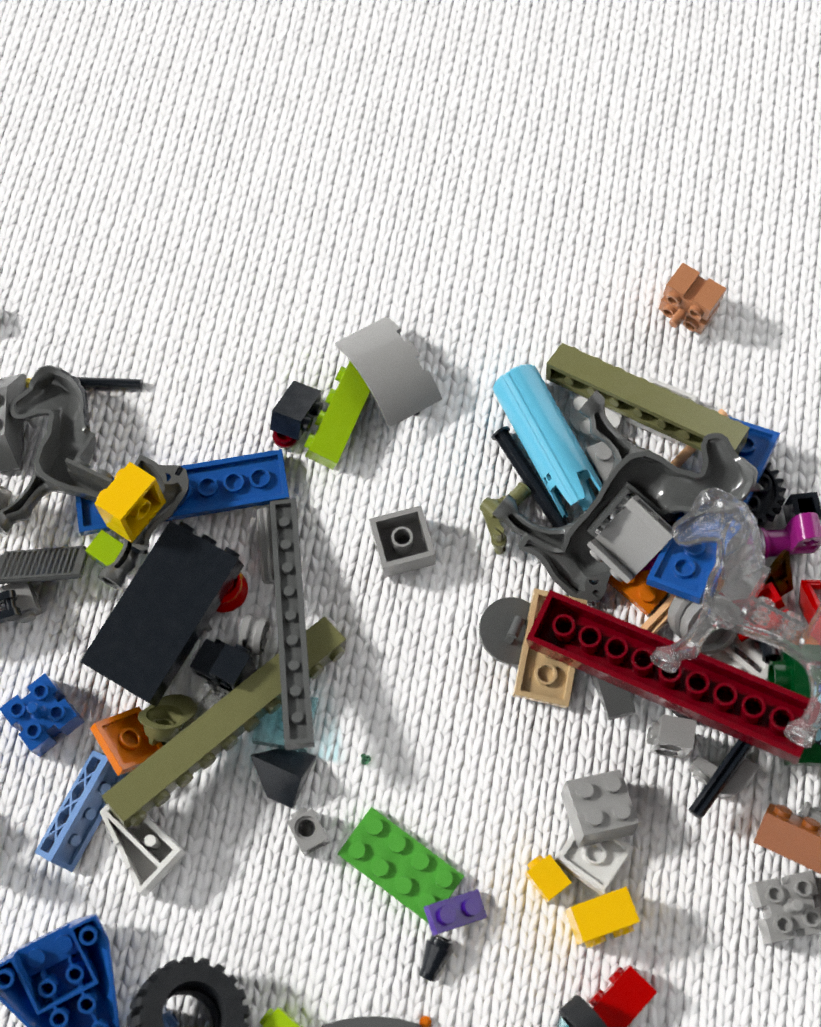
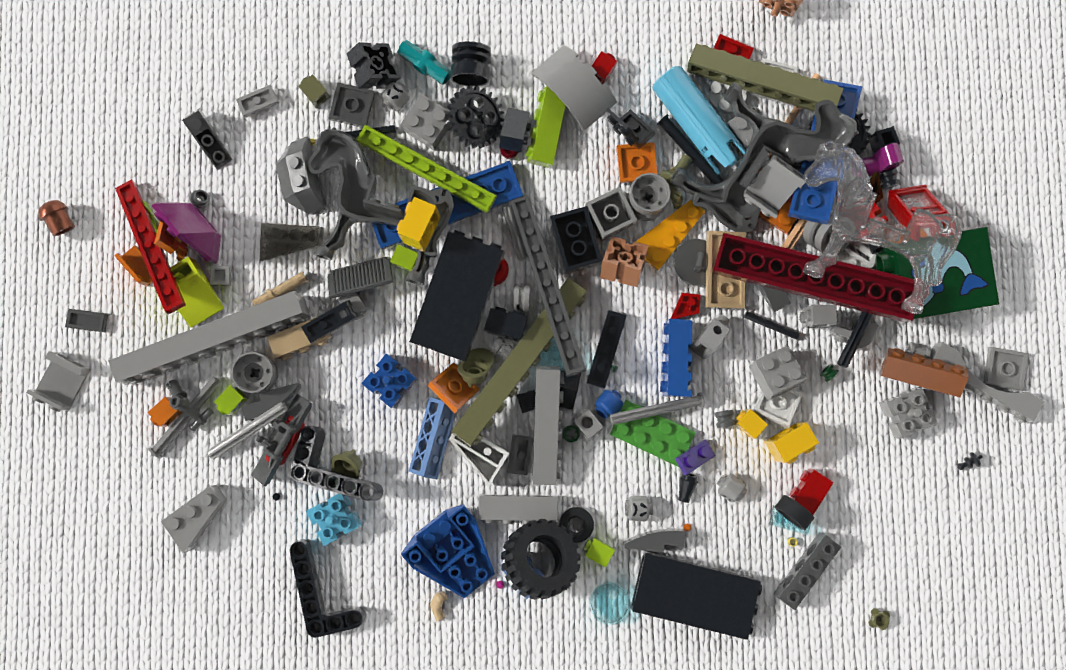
camera: 15 degrees left, 15 degrees up
(48, 319) = (314, 90): none -> olive brick
(92, 345) = (351, 105): none -> dark grey plate
(130, 299) = (373, 65): none -> black brick
(152, 343) = (395, 95): none -> light grey head
(168, 441) = (426, 169): none -> lime tile
(176, 938) = (517, 508): none -> light grey brick
(184, 381) = (426, 122): none -> light grey brick
(199, 858) = (519, 454): none -> dark grey plate
(200, 309) = (424, 62): none -> teal piece
(228, 394) = (464, 127): none -> black gear
(230, 782) = (527, 401): none -> black plate
(244, 821) = (546, 425): none -> light grey brick
(257, 318) = (470, 63): none -> black wheel
(277, 981) = (579, 512): none -> black tyre
(282, 851) = (573, 439): none -> dark green bush
(344, 808) = (608, 403): none -> blue head
(346, 568) = (575, 240): none -> black brick
(356, 975) = (638, 508): none -> light grey head
(358, 729) = (606, 349): none -> black plate
(406, 608) = (624, 261): none -> nougat brick
(434, 352) = (604, 66): none -> red brick
(434, 828) = (658, 409): none -> light grey axle
(453, 482) = (635, 161): none -> orange plate
(455, 433) = (631, 127): none -> black bracket
(456, 761) = (677, 358): none -> blue wedge
(461, 515) = (652, 188): none -> light grey wheel
(474, 589) = (669, 233): none -> light orange wing
(486, 689) = (687, 305): none -> red piece
(502, 971) = (731, 487): none -> light grey head
(510, 737) = (710, 337): none -> light grey torso
(510, 863) = (724, 418): none -> dark grey wheel
(604, 739) = (771, 325): none -> black bar
(613, 356) = (733, 47): none -> red plate
(677, 824) = (829, 372): none -> dark green bush
(804, 565) = (889, 179): none -> black wheel

